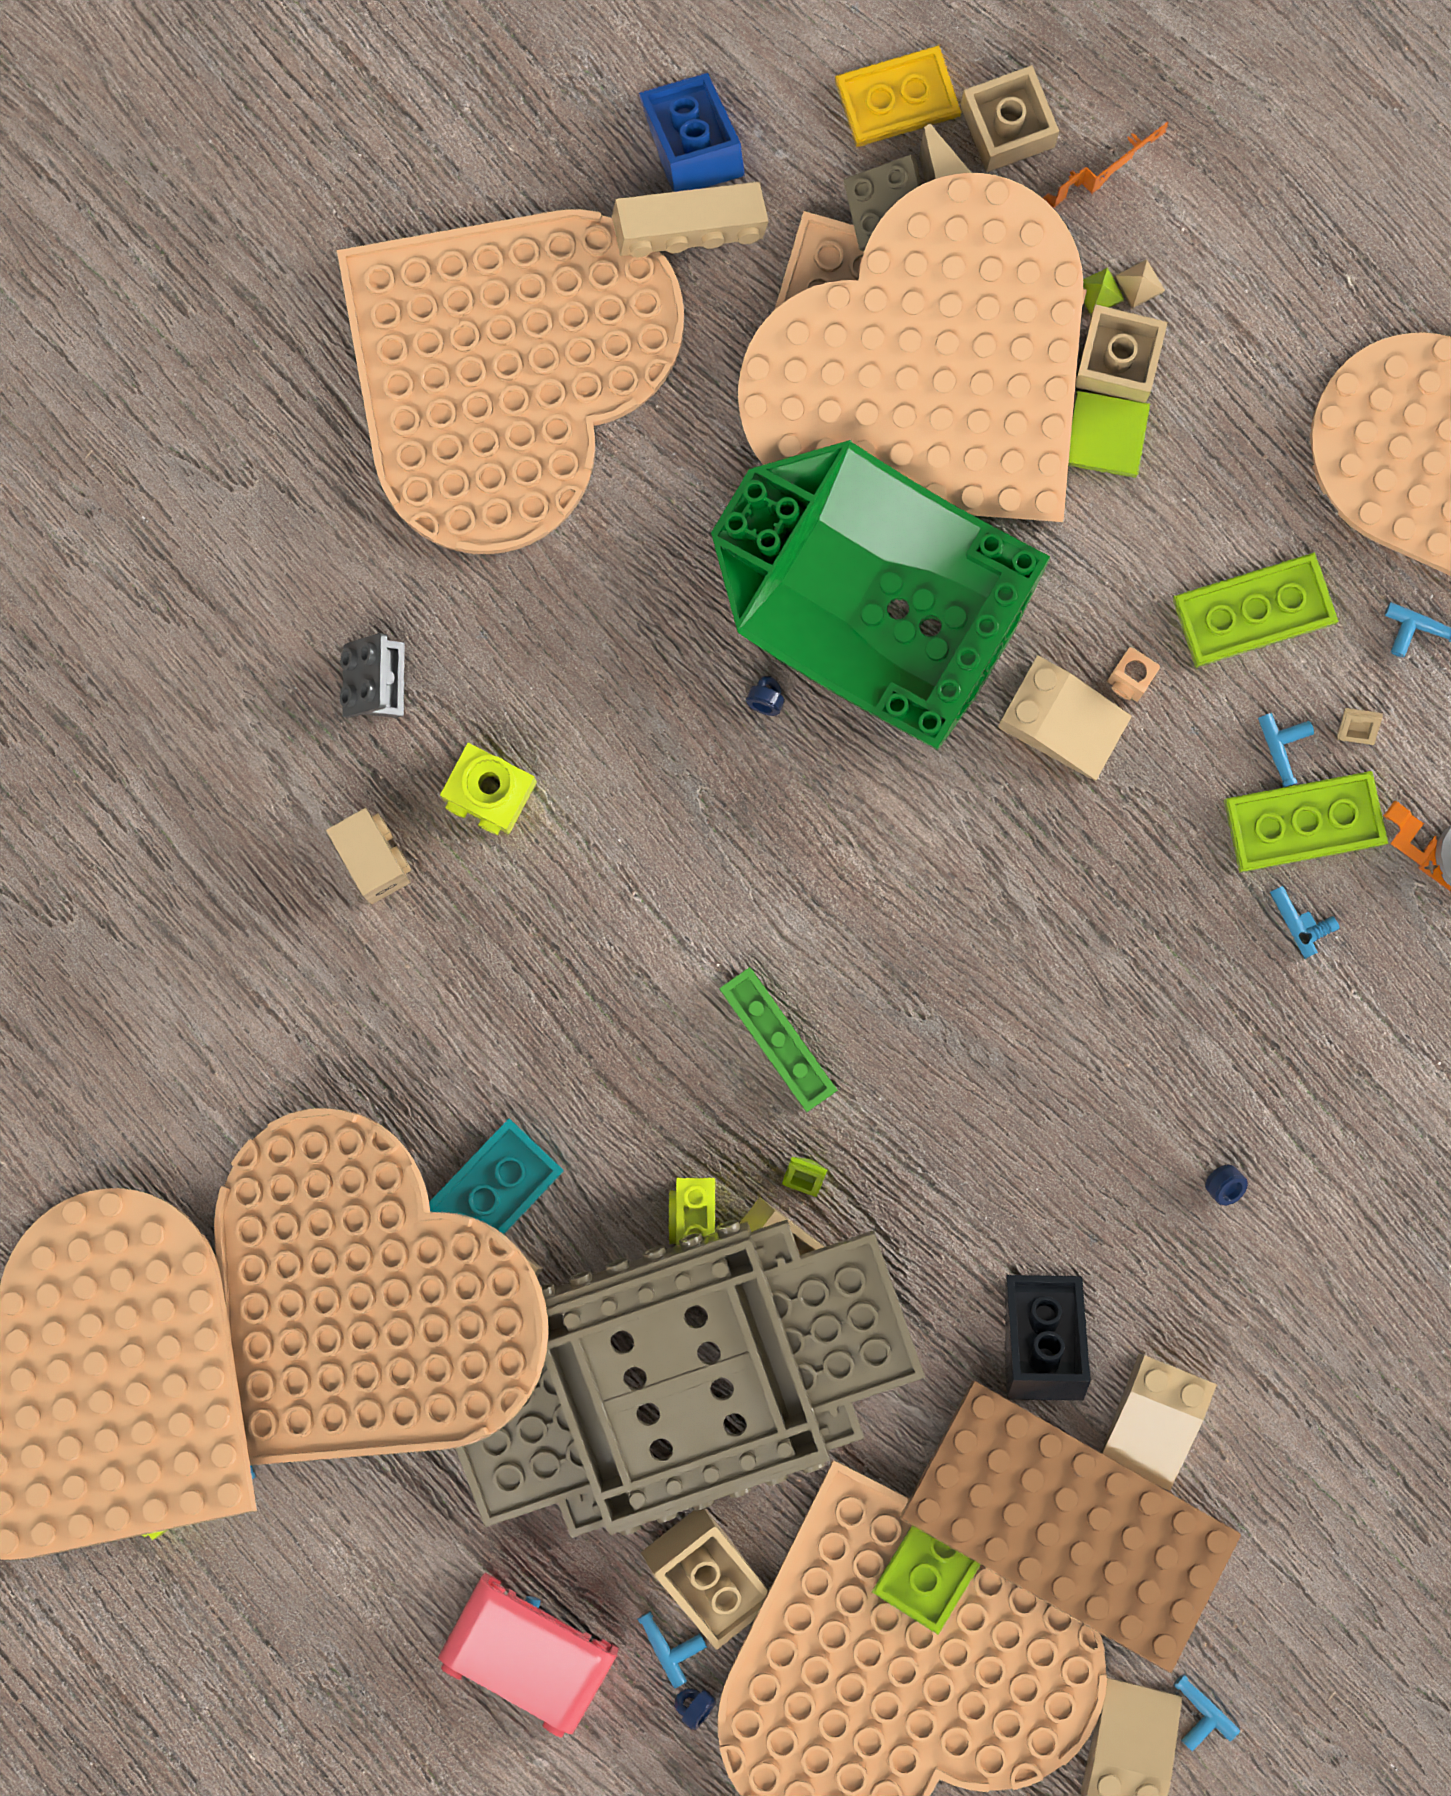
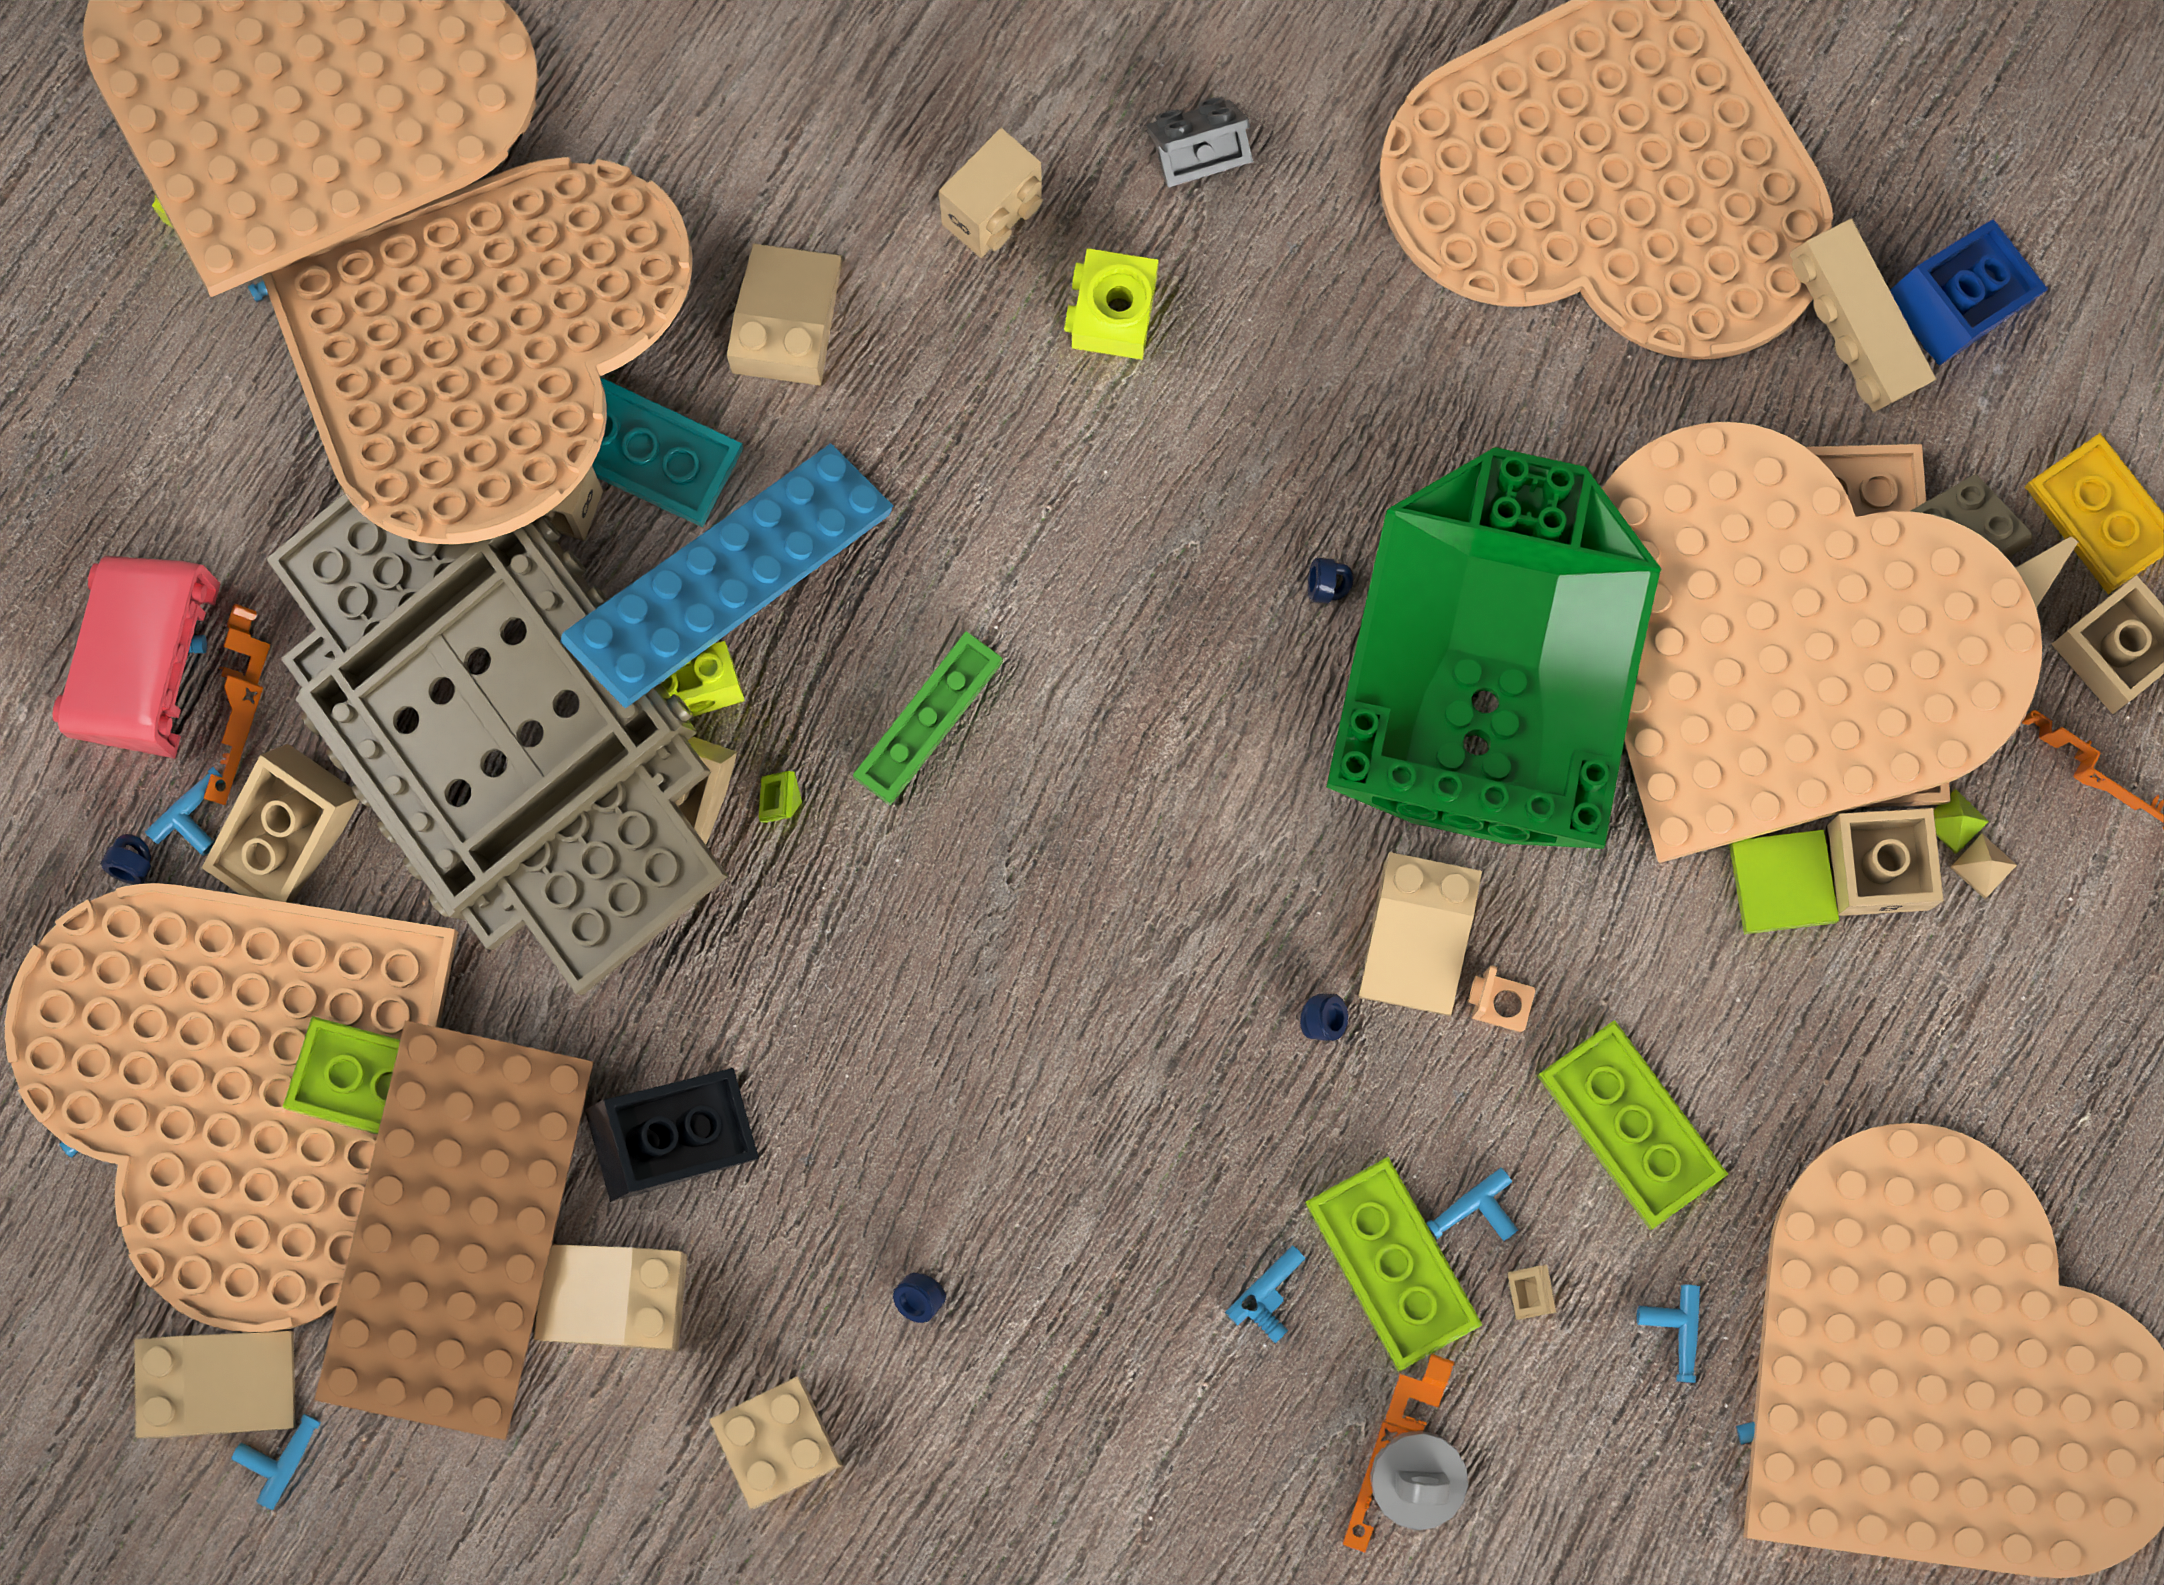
camera: 70 degrees right, 5 degrees down
(408, 1050) = (784, 314): none -> tan slope
(601, 1581) = (235, 686): none -> orange piece
(625, 1160) = (725, 575): none -> dark azure plate
(1106, 812) = (1324, 1017): none -> dark blue tile
(1306, 1327) = (775, 1442): none -> tan brick

